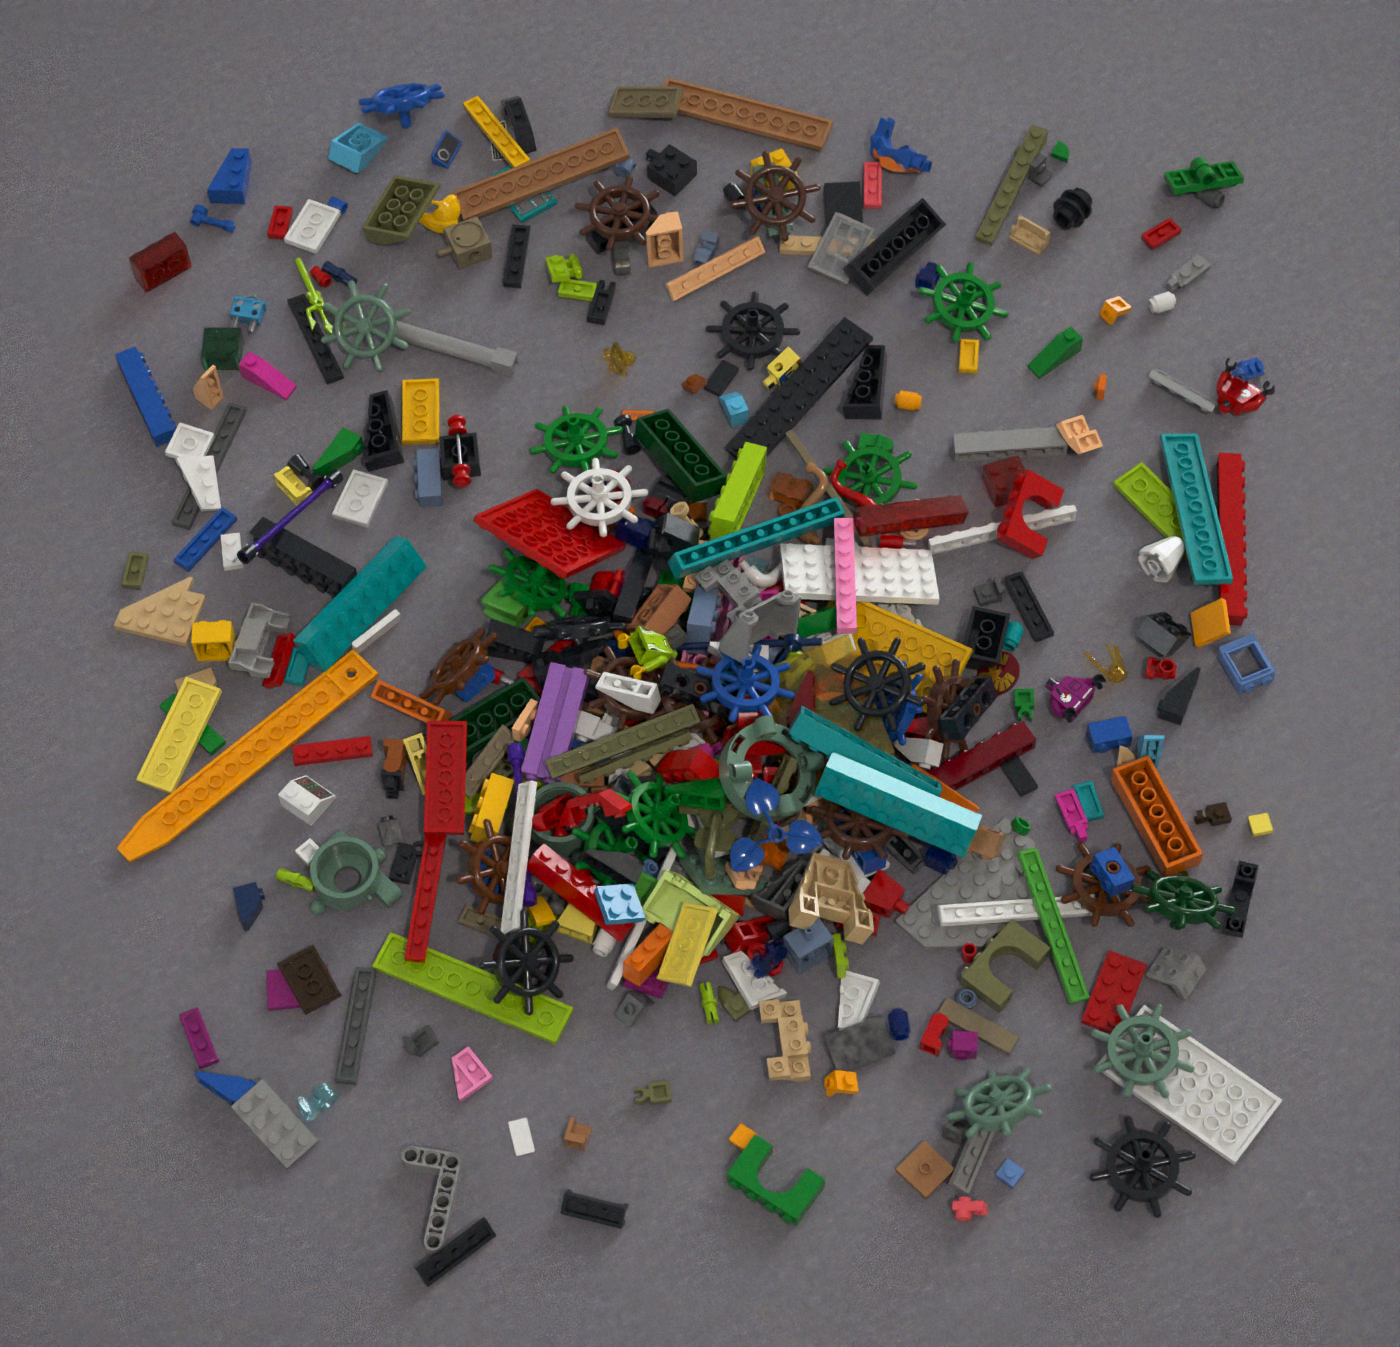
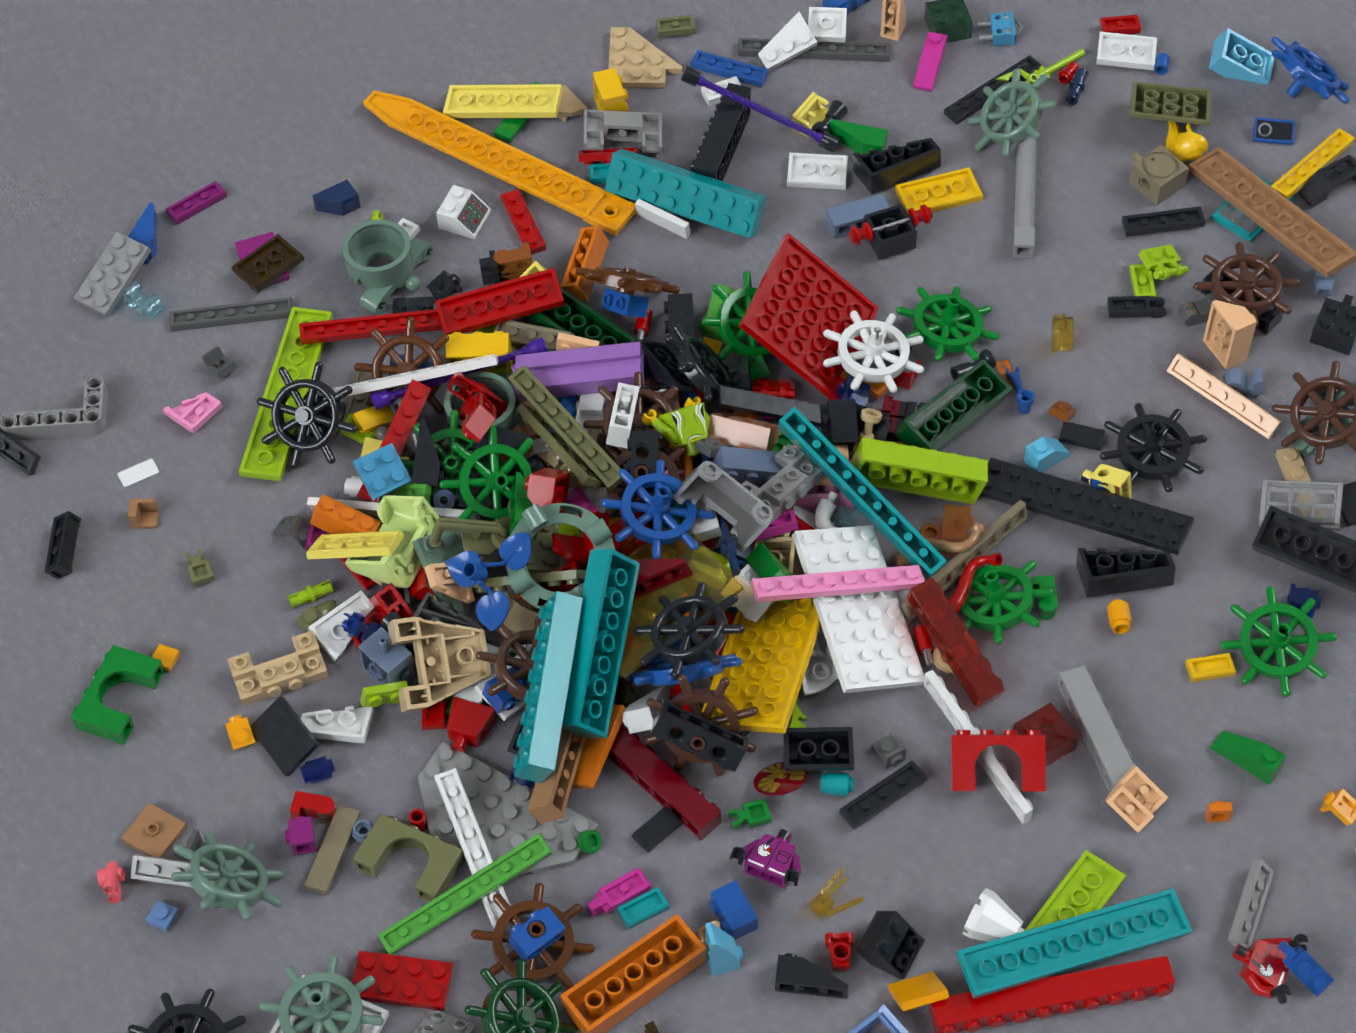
camera: 75 degrees right, 5 degrees down
(676, 406) = (1025, 397): none -> blue brick

